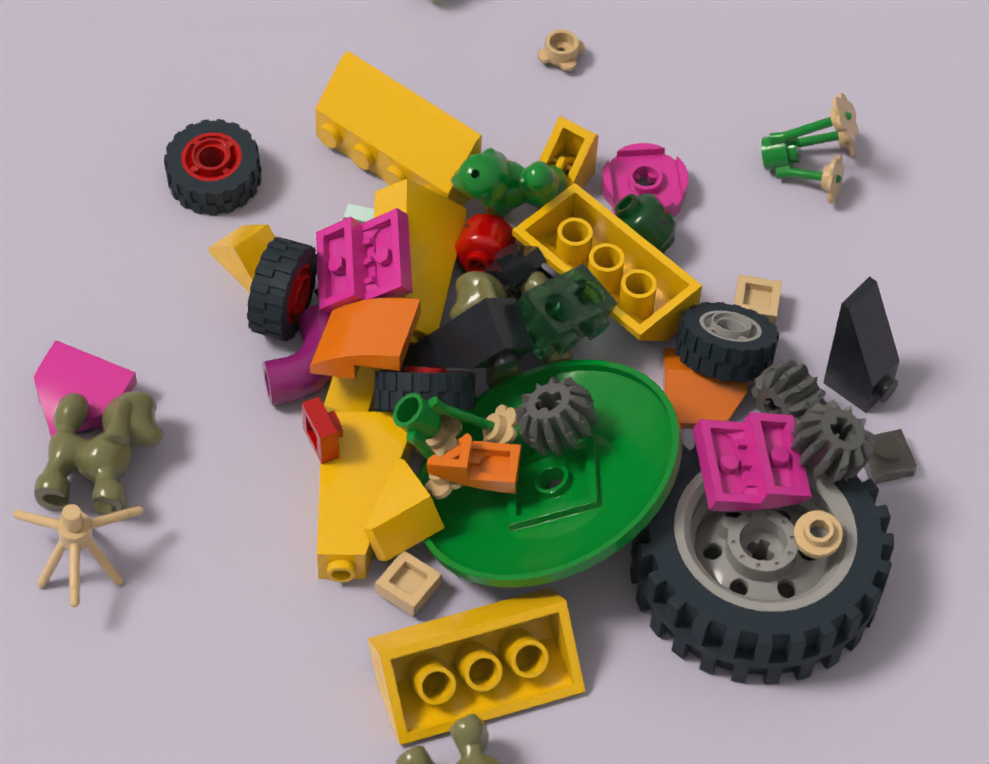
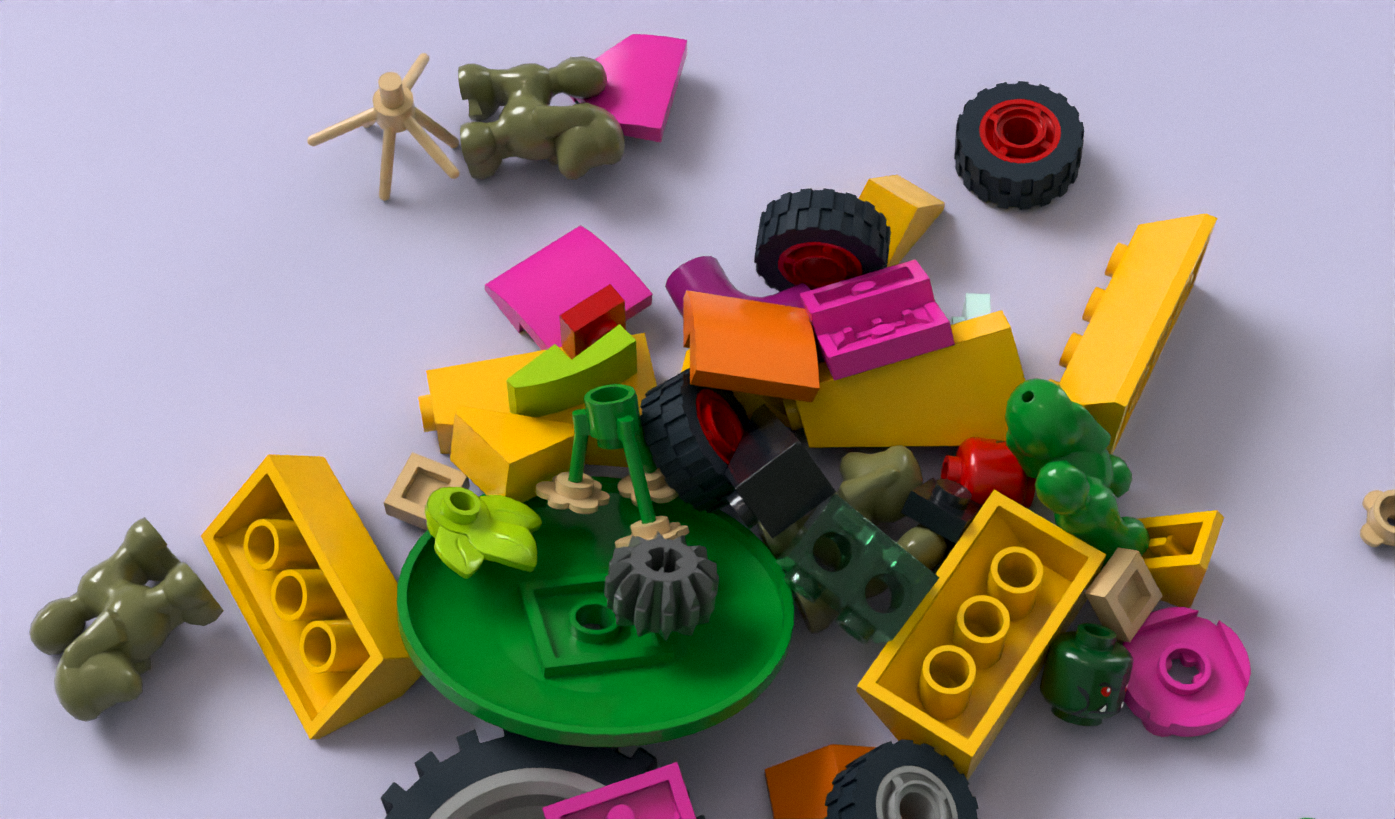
camera: 80 degrees right, 5 degrees up
(256, 466) = (559, 279): none -> dark pink slope
(360, 450) = (558, 383): none -> lime slope
(474, 528) = (480, 529): none -> lime plate
(479, 465) = (579, 516): orange slope -> none
(595, 187) = (1124, 593): none -> tan plate

